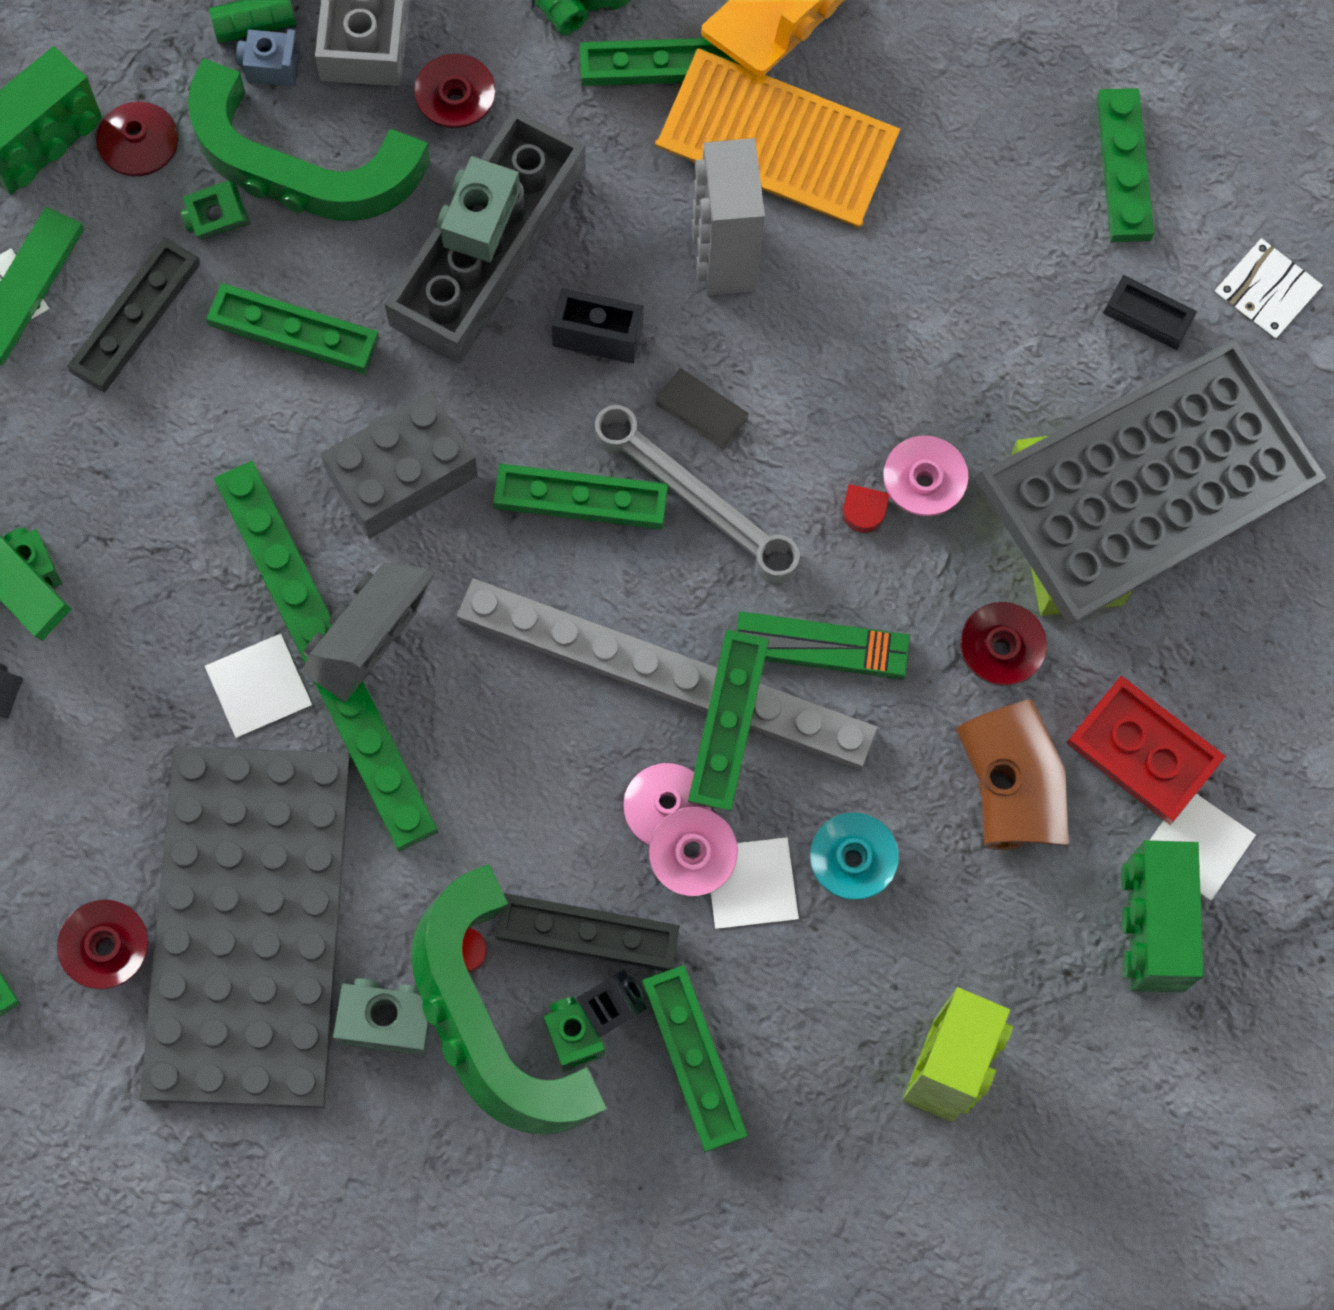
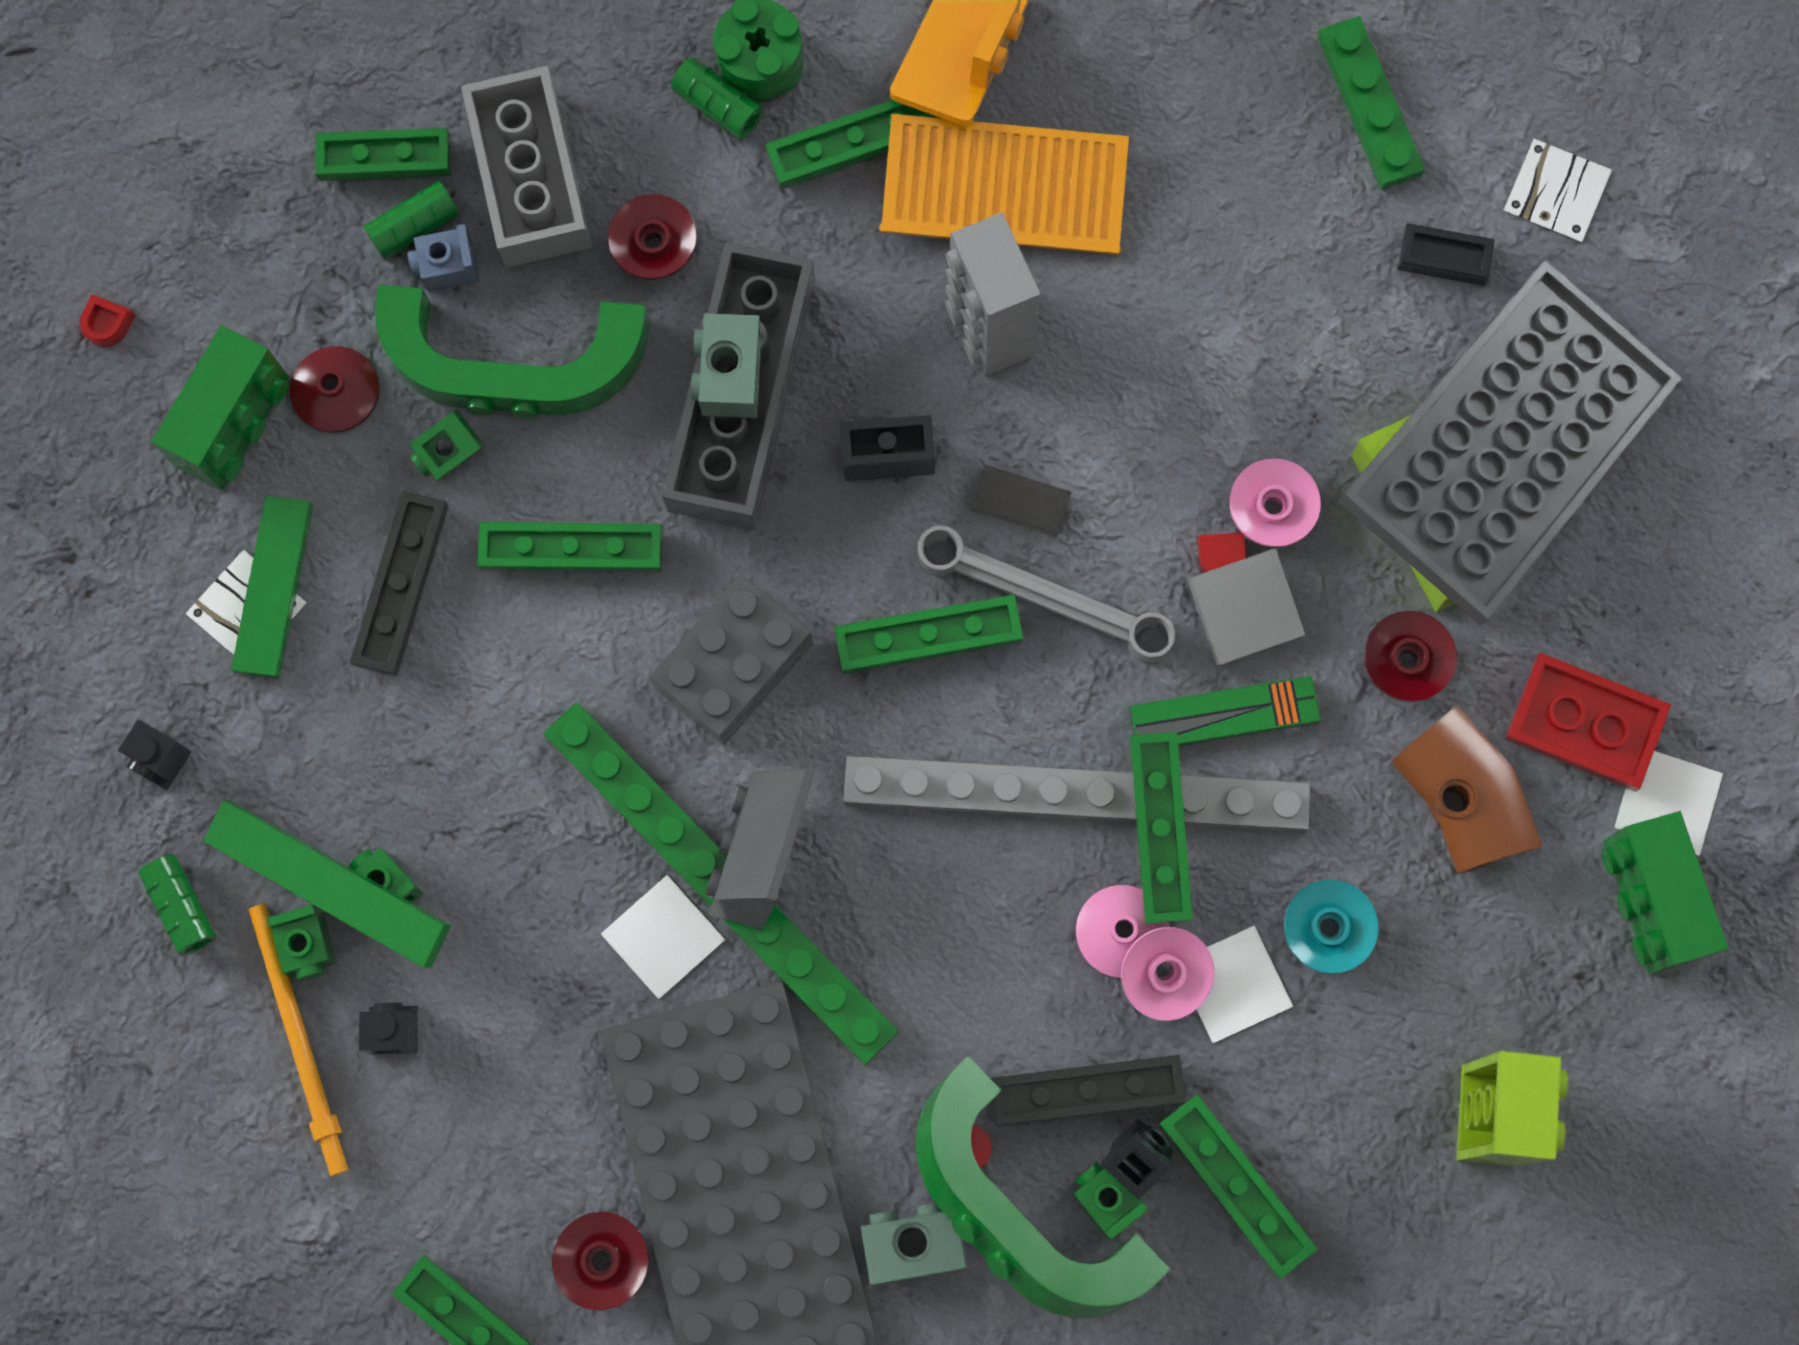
camera: 10 degrees left, 5 degrees up
(870, 557) = (1246, 606): none -> light grey tile

